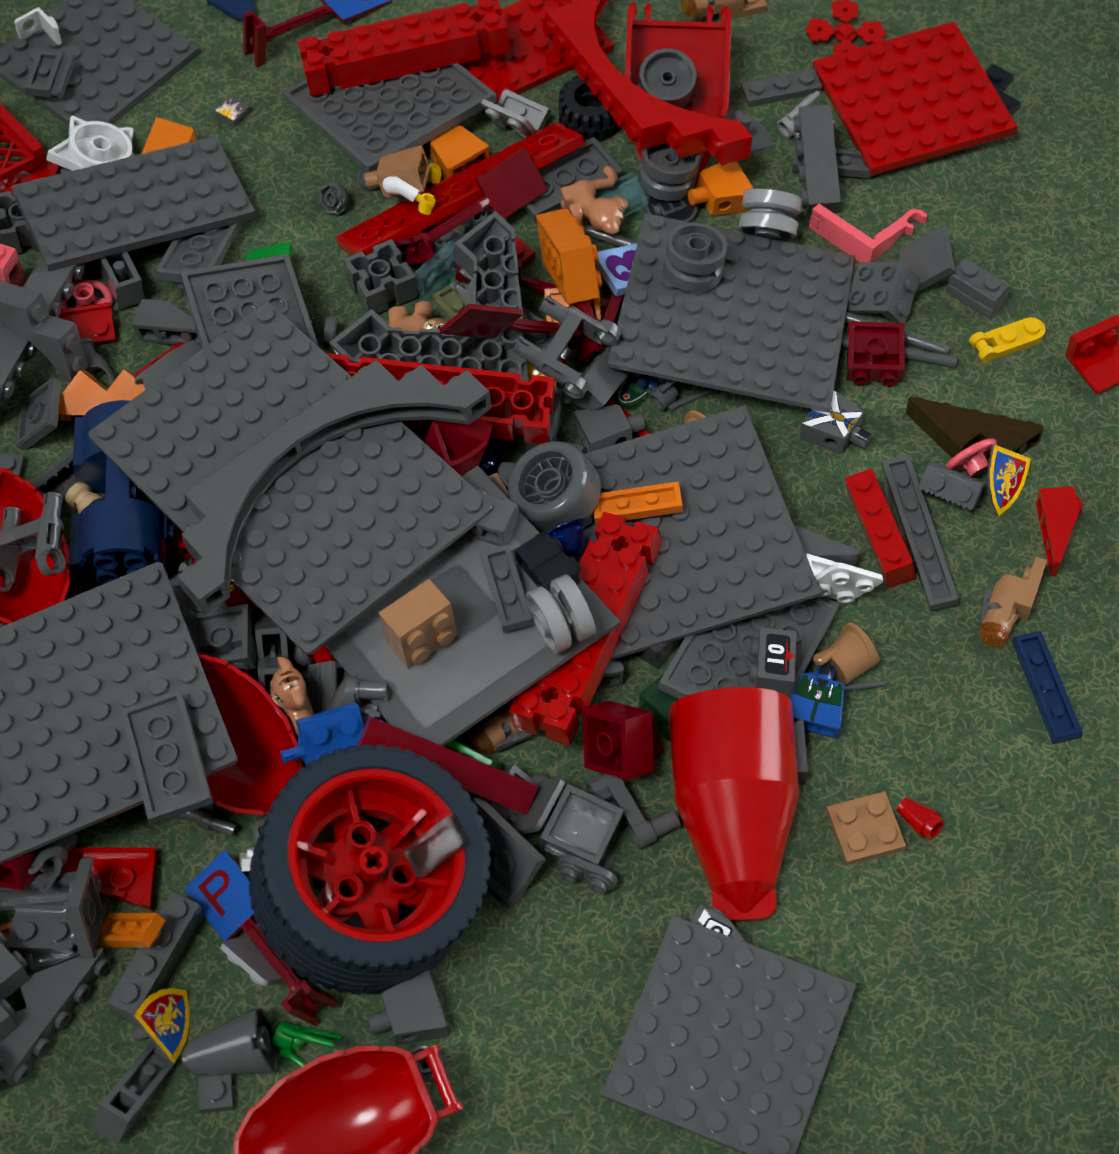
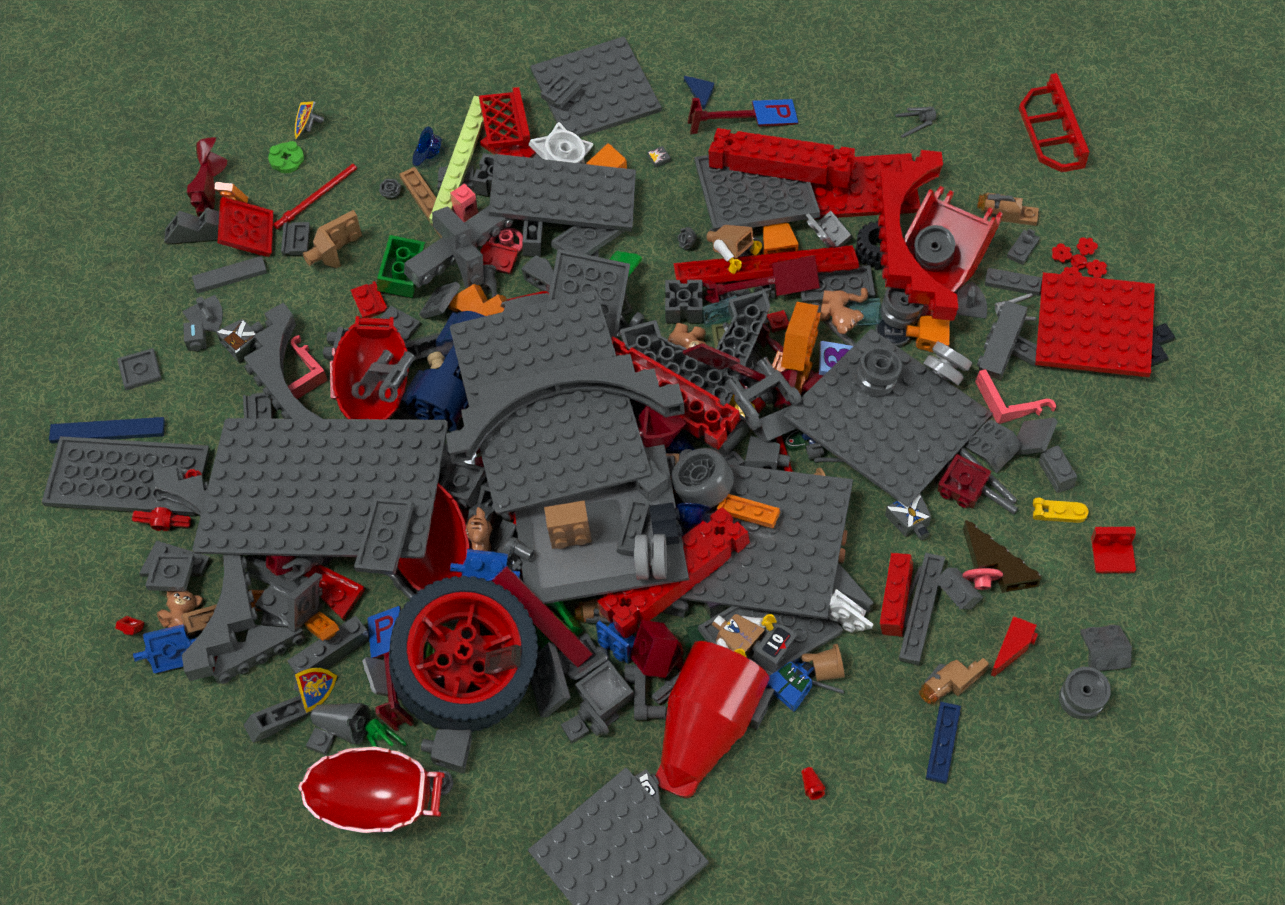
camera: 30 degrees right, 0 degrees up
(41, 21) = (573, 55): white bracket -> none
(554, 757) = (610, 638): none -> blue bracket
(566, 900) = (575, 729): none -> dark grey plate
(660, 785) = (664, 692): none -> dark grey axle
(725, 660) = (742, 632): none -> medium nougat torso
(767, 41) = (1023, 246): none -> dark grey plate
(865, 828) = (776, 773): medium nougat plate -> none
(1005, 477) = (997, 599): shield -> none

